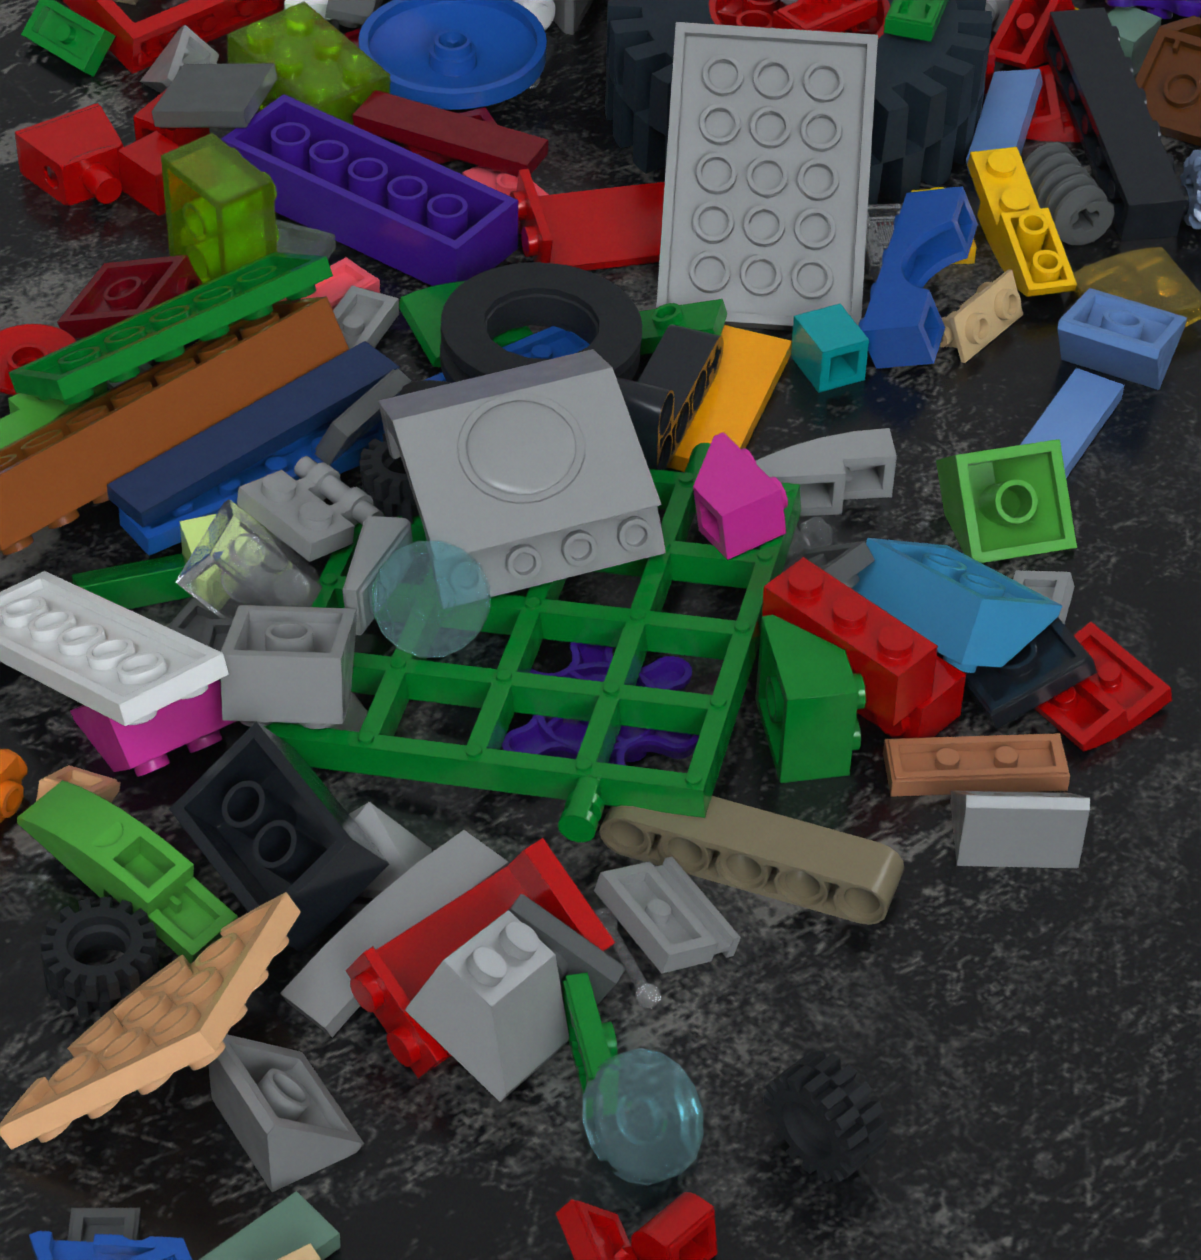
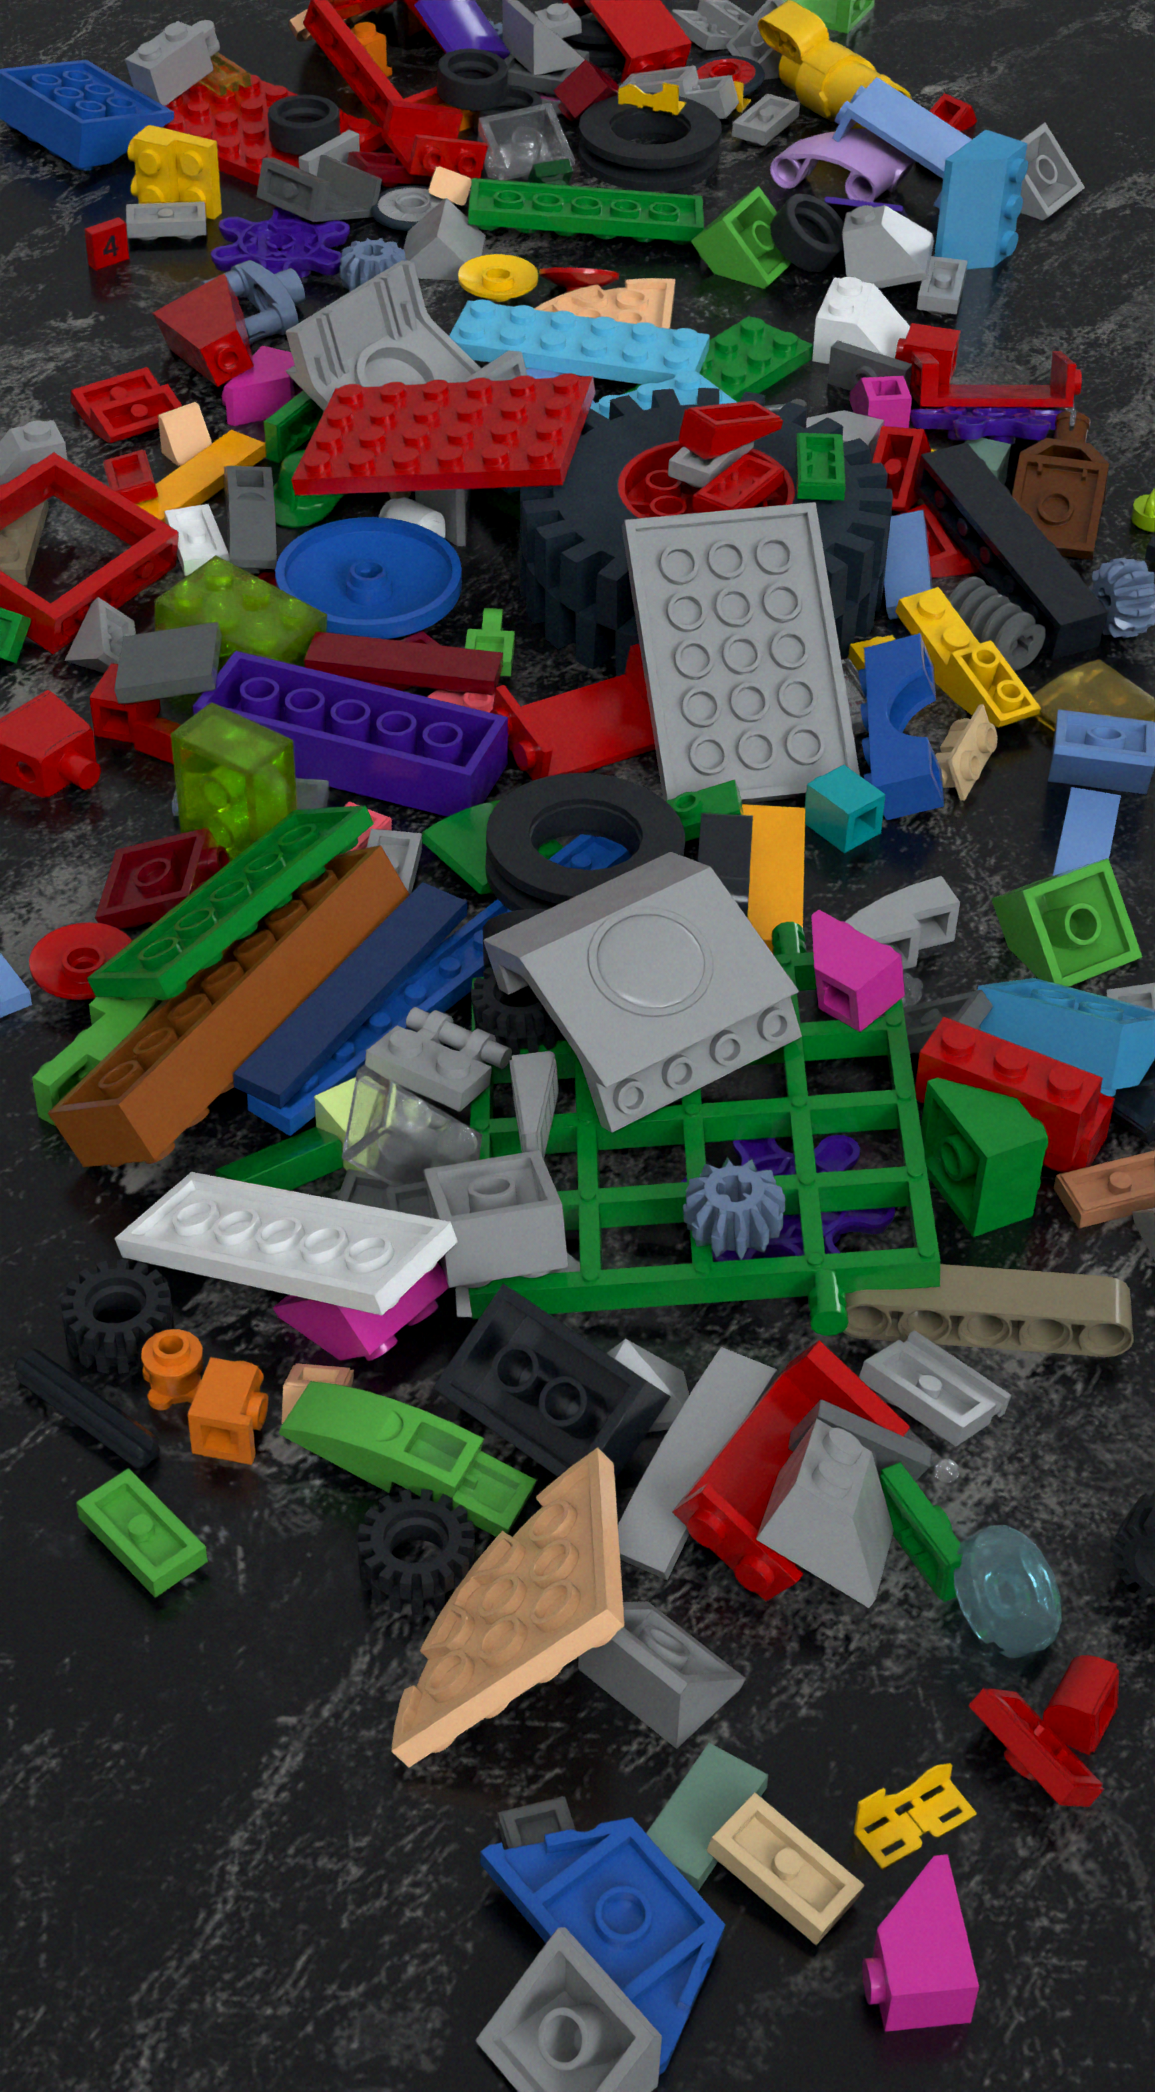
camera: 15 degrees left, 0 degrees up
(142, 170) = (131, 749): red brick -> none
(359, 417) = (452, 957): dark grey tile -> none
(431, 598) = (611, 1126): clear light blue tile -> none
(519, 699) = (734, 1208): none -> sand blue gear
(553, 126) = (493, 638): none -> bright green plate

